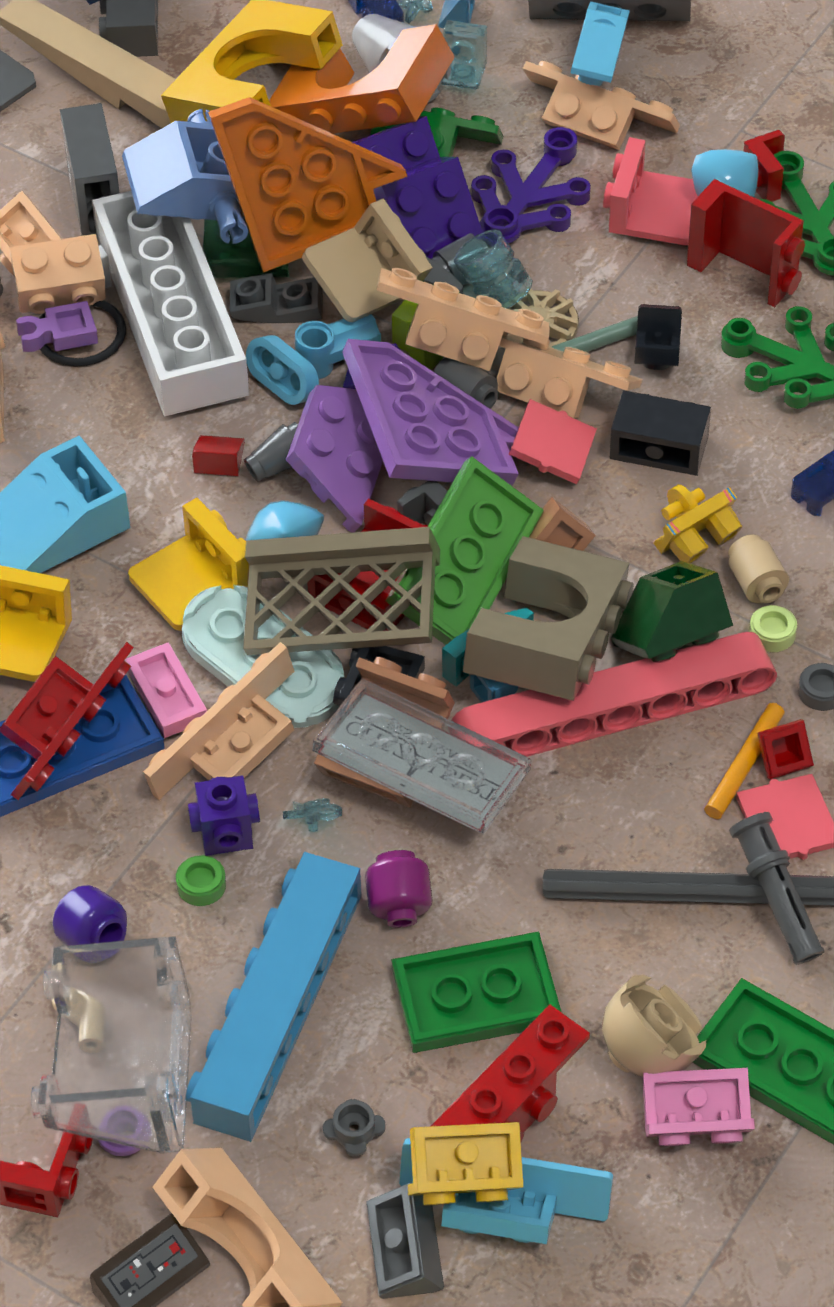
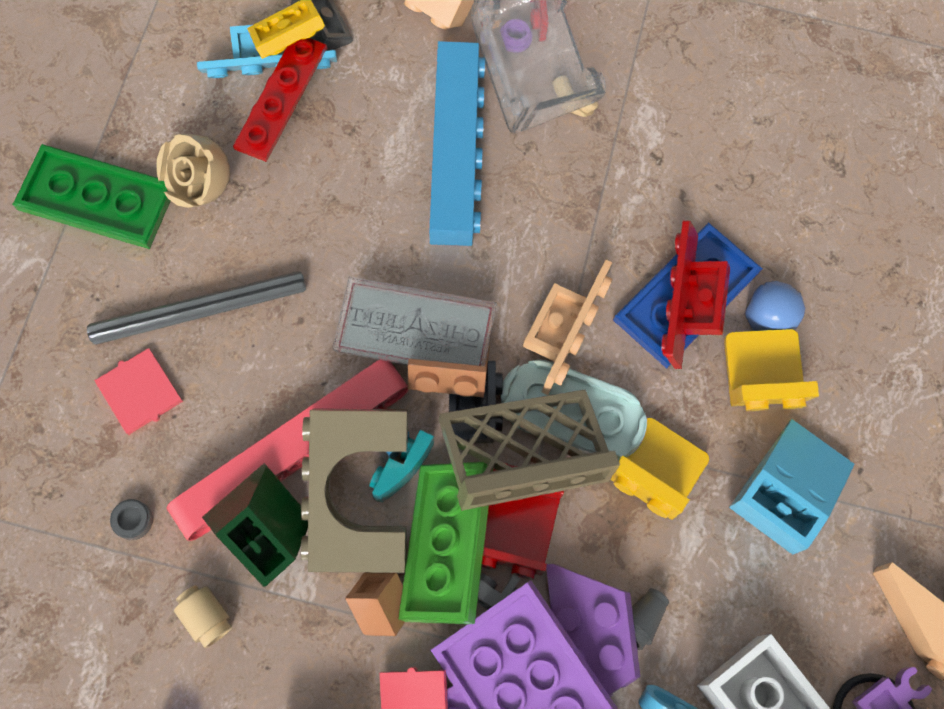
camera: 155 degrees right, 20 degrees up
(89, 917) = (598, 156): dark purple head -> none
(165, 689) = (630, 356): bright pink plate -> none
(201, 880) = (541, 218): bright green tile -> none
(218, 455) = (694, 608): red slope -> none
(224, 814) = (543, 256): dark purple brick -> none
(285, 520) = (602, 521): medium azure piece -> none
(313, 812) = (485, 285): clear light blue plant -> none
(354, 1113) = (375, 68): dark grey plate -> none
(398, 888) = (401, 238): magenta head -> none
(473, 991) = (327, 190): green tile -> none
(682, 533) = (268, 655): yellow hips -> none
(697, 1104) = (147, 131): bright pink bracket -> none
(742, 763) = (180, 431): light orange bar -> none
(770, 866) = (135, 315): dark grey pin -> none
(775, 627) = (181, 566): yellowish green tile -> none
(785, 749) = (150, 444): red slope -> none

